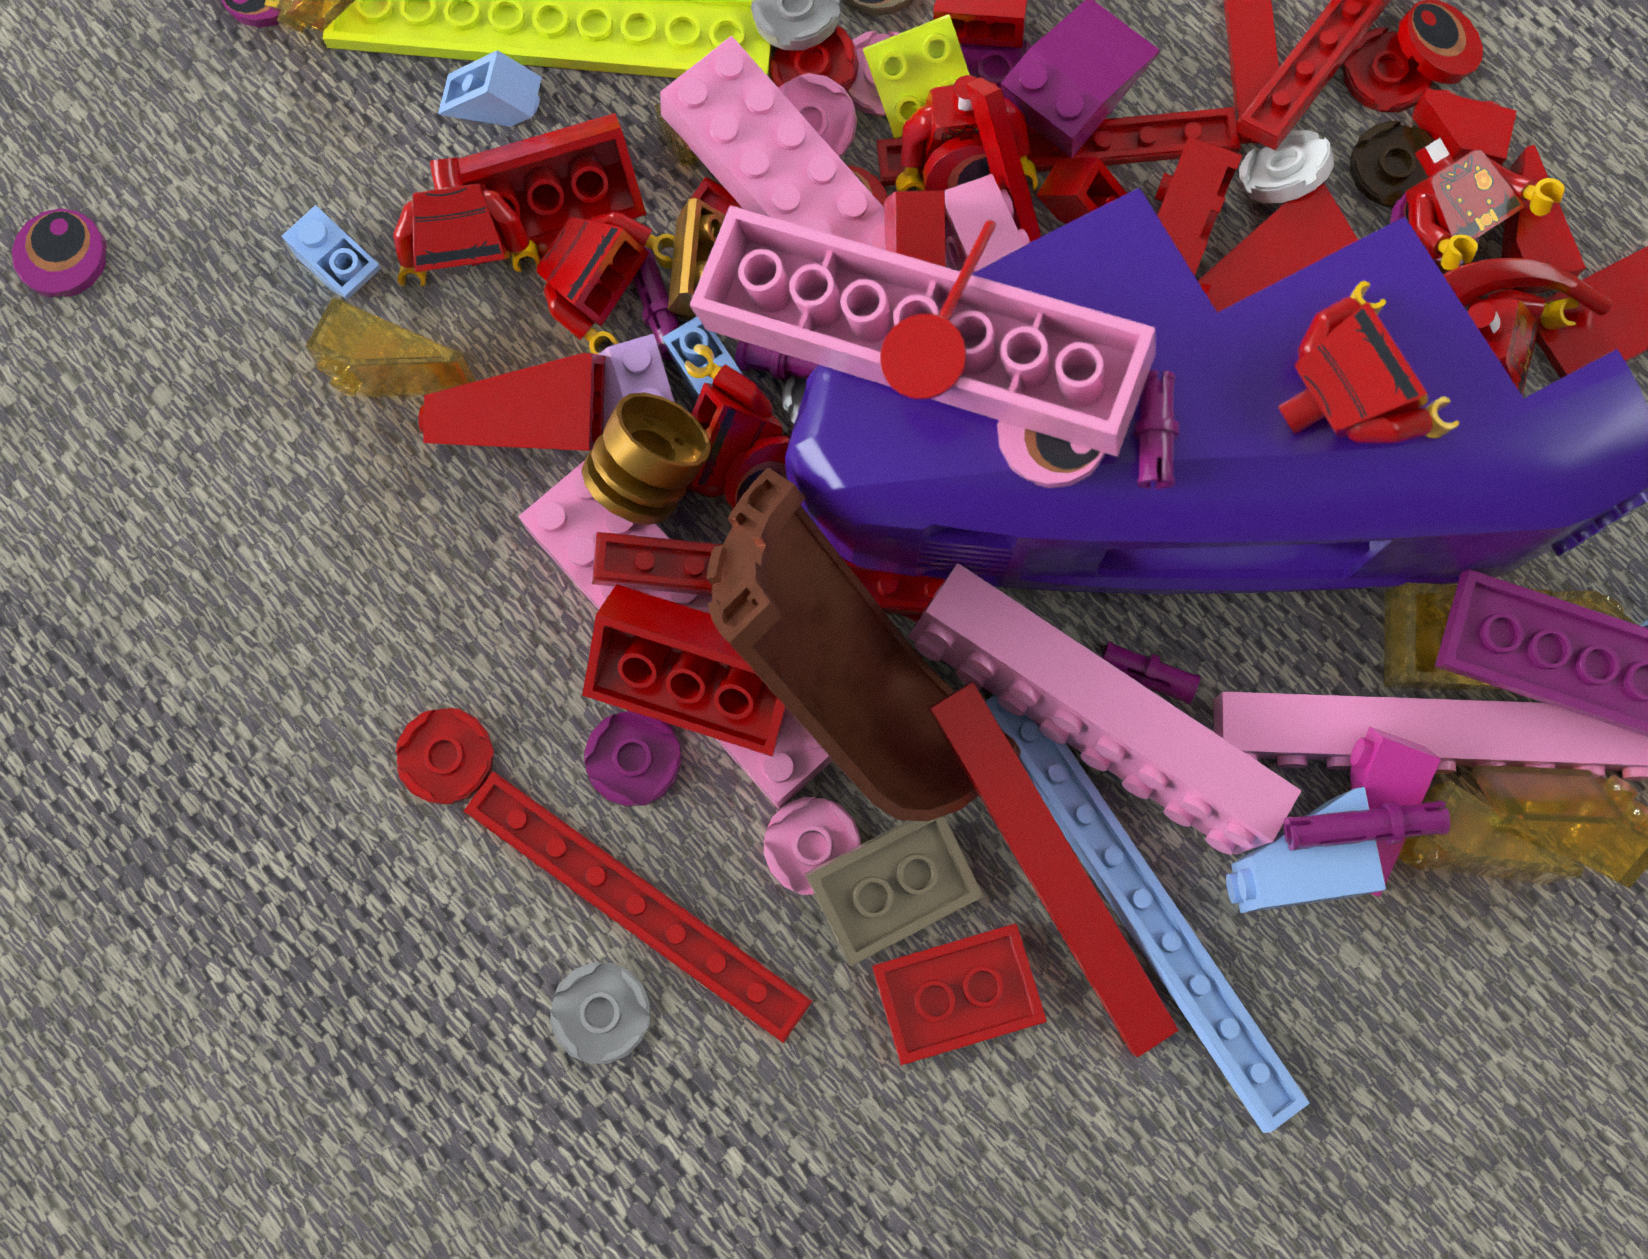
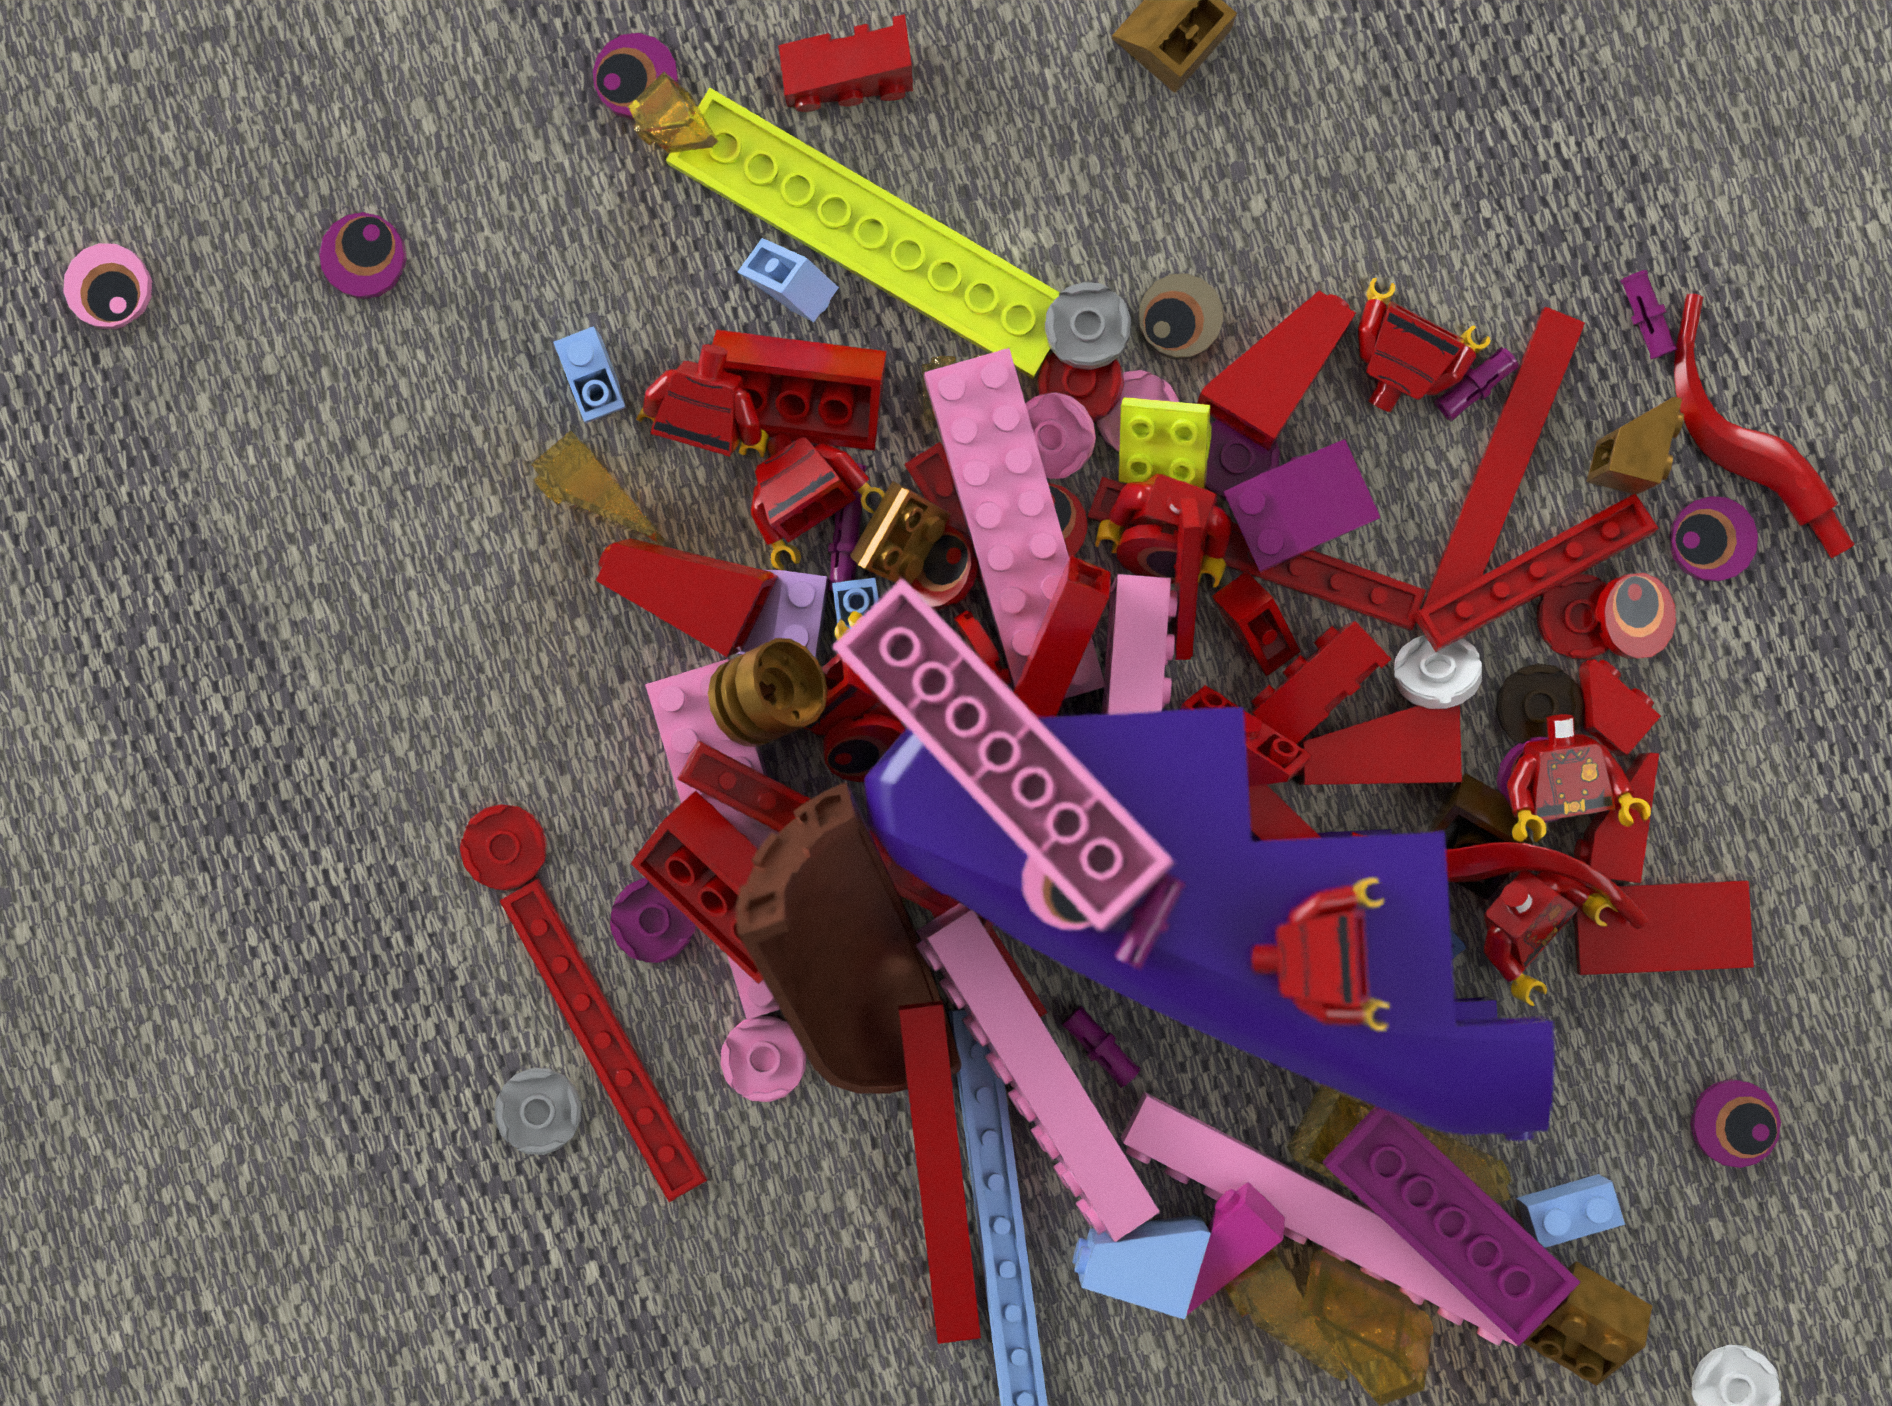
camera: 30 degrees right, 10 degrees up
(893, 886) = (808, 1125): dark tan plate -> none
(926, 351) = (990, 787): red piece -> none
(958, 994) = (822, 1229): red plate -> none
(1377, 824) = (1194, 1266): magenta pin -> none

